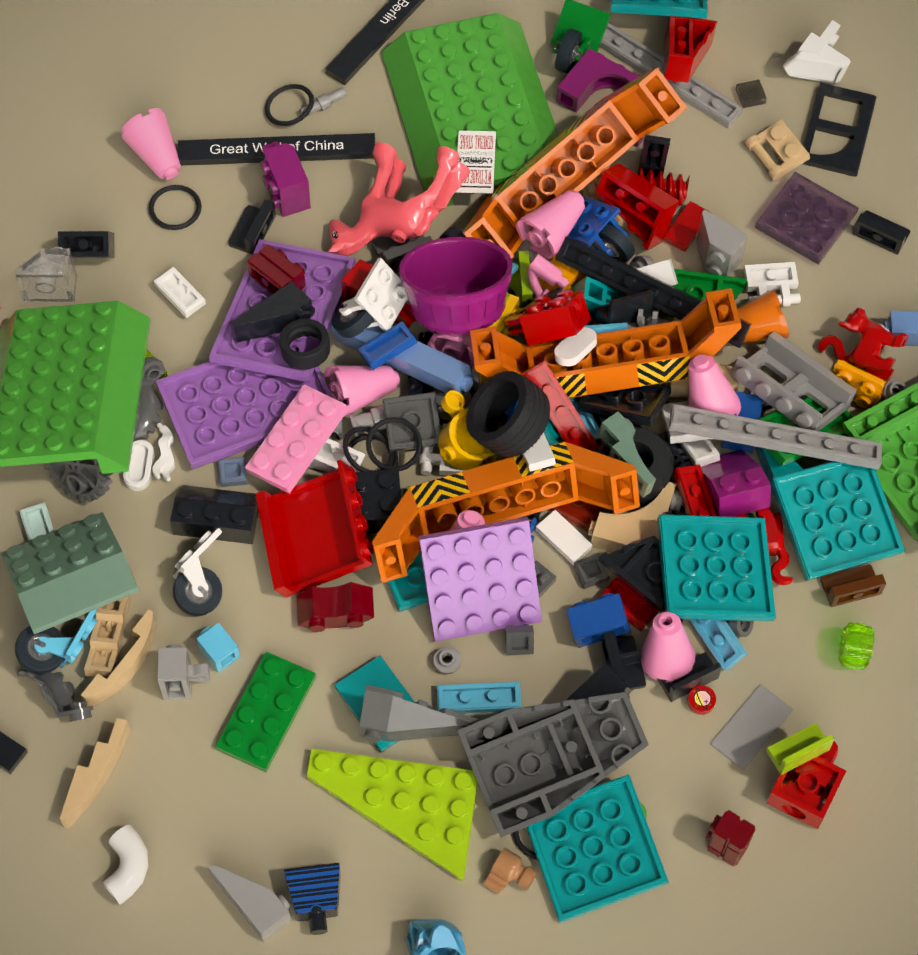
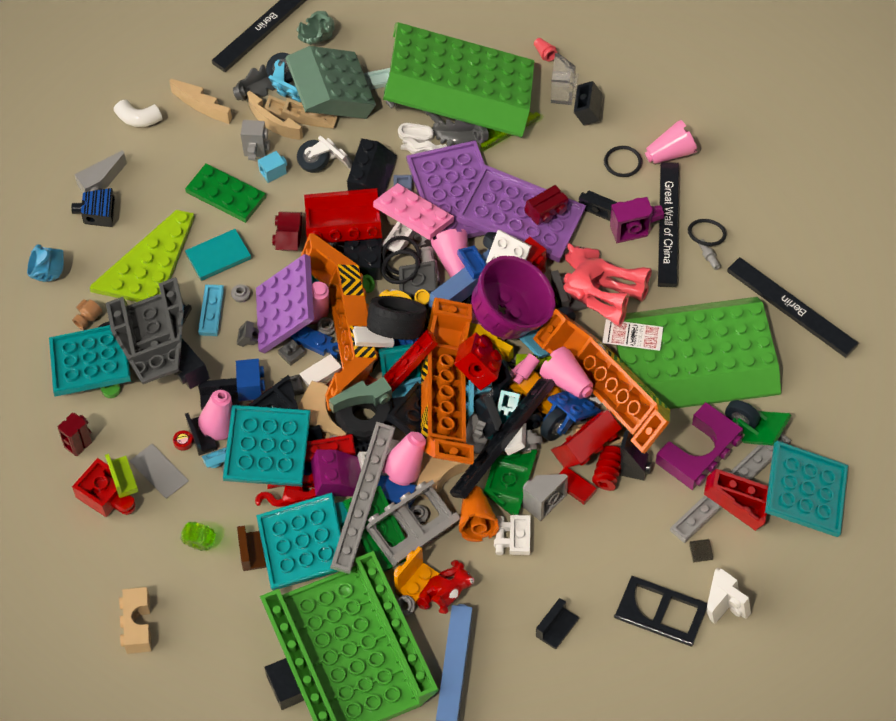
camera: 100 degrees right, 5 degrees down
(179, 292) = (547, 158): white plate -> none
(273, 314) = (511, 203): black slope -> none
(302, 328) = (482, 202): black tyre -> none
(392, 718) = (199, 252): dark grey wedge -> none
(576, 347) = (446, 367): white tile -> none
(783, 144) = (641, 564): tan plate -> none
(806, 218) = (572, 569): clear purple plate -> none

